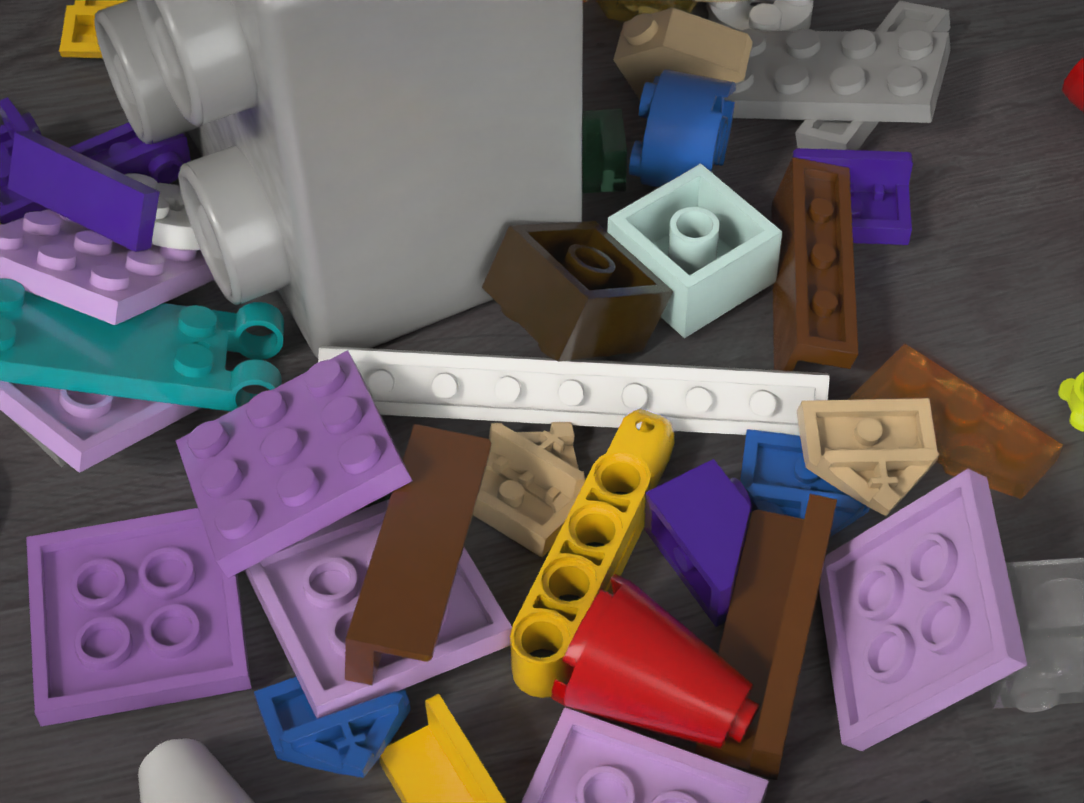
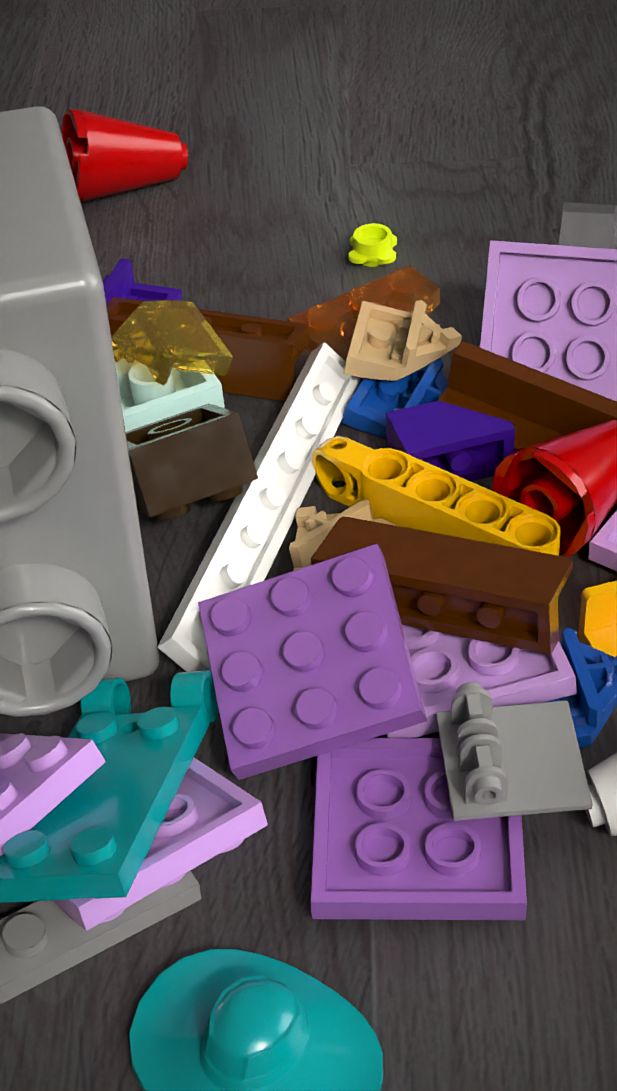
camera: 75 degrees left, 10 degrees down
(199, 668) = (510, 757): none -> light grey hinge
(734, 220) = (169, 337): none -> clear yellow slope

